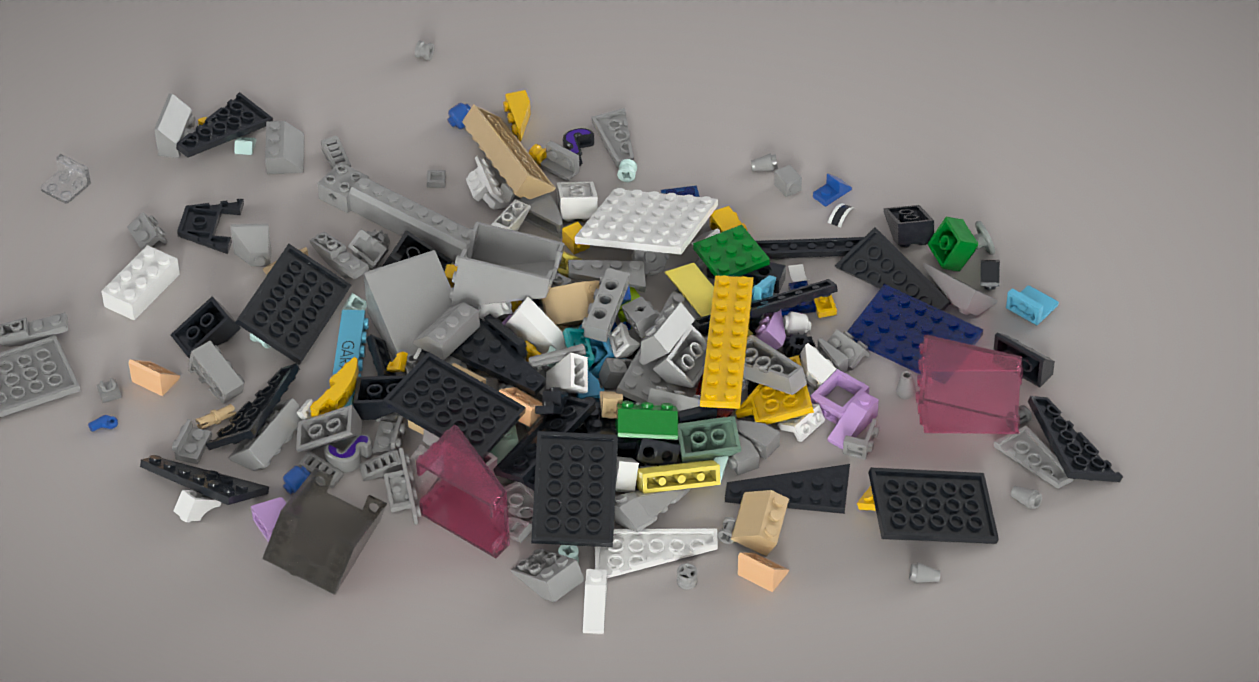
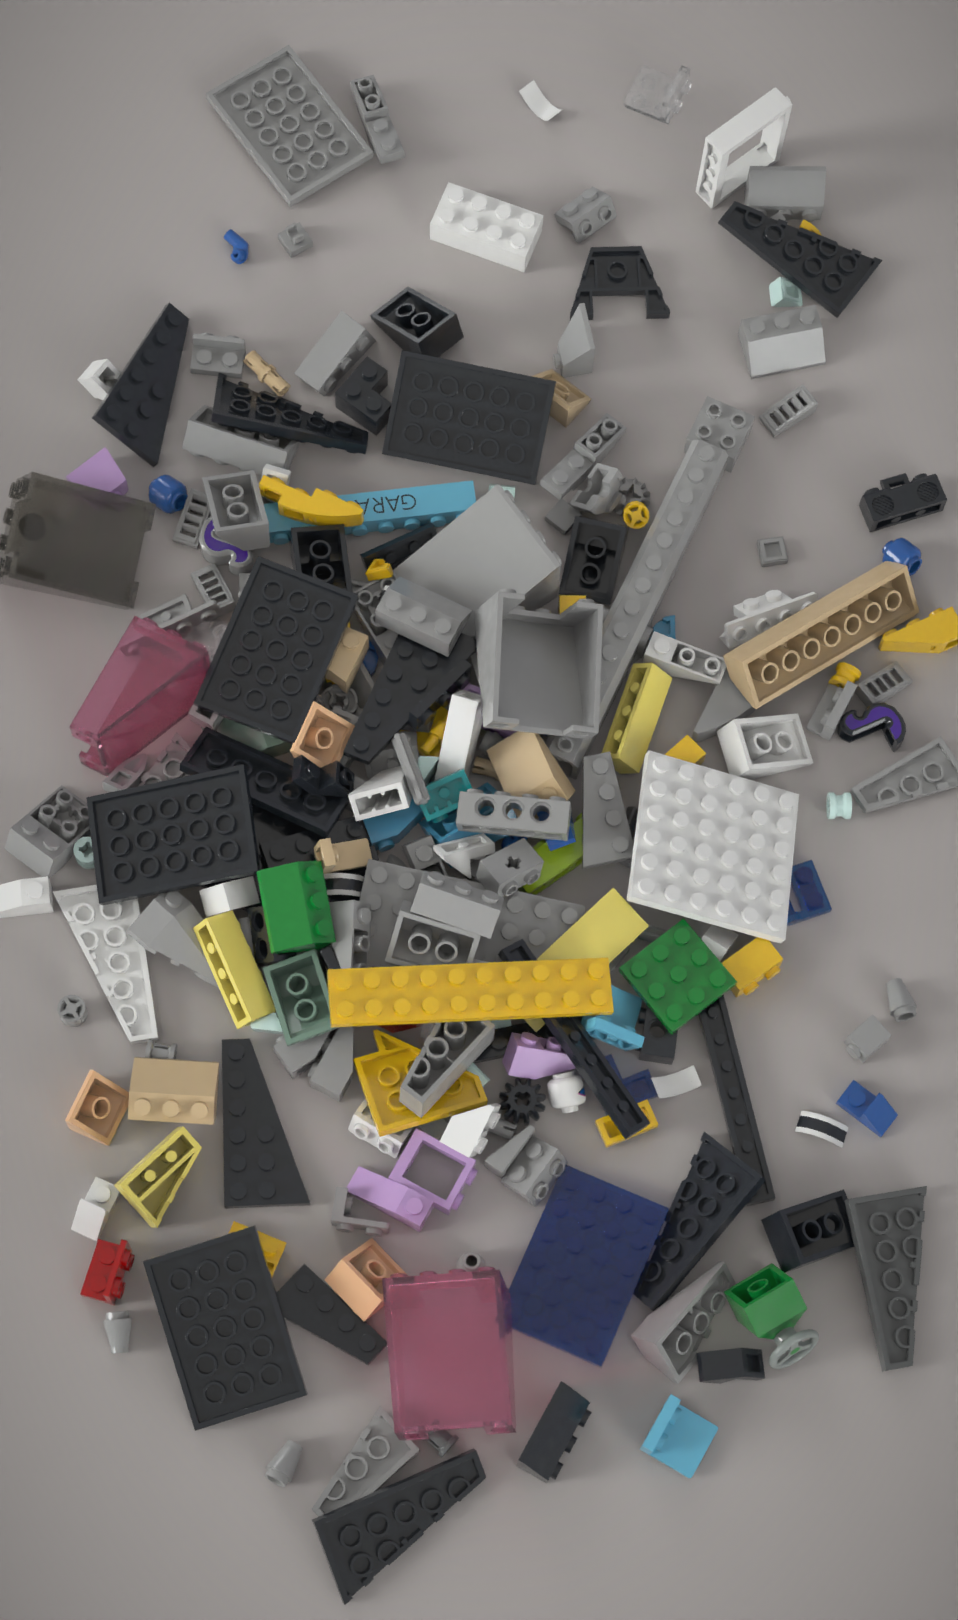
camera: 75 degrees right, 25 degrees up
(48, 248) = (538, 102): none -> white sticker
(142, 126) = (720, 181): none -> white window
(152, 376) = (327, 283): light nougat slope -> none
(255, 365) = (361, 397): none -> black brick
(392, 233) = (634, 518): none -> yellow wheel
(421, 112) = (904, 503): none -> black piece
(546, 135) = (868, 697): none -> light grey slope
(818, 535) = (156, 1178): none -> light yellow wedge
(835, 579) = (95, 1209): none -> white slope
(882, 569) = (107, 1270): none -> red bracket
(909, 439) = (360, 1276): none -> light nougat slope
(937, 193) = (889, 1259): none -> dark grey wing
(937, 457) = (322, 1312): none -> black wing

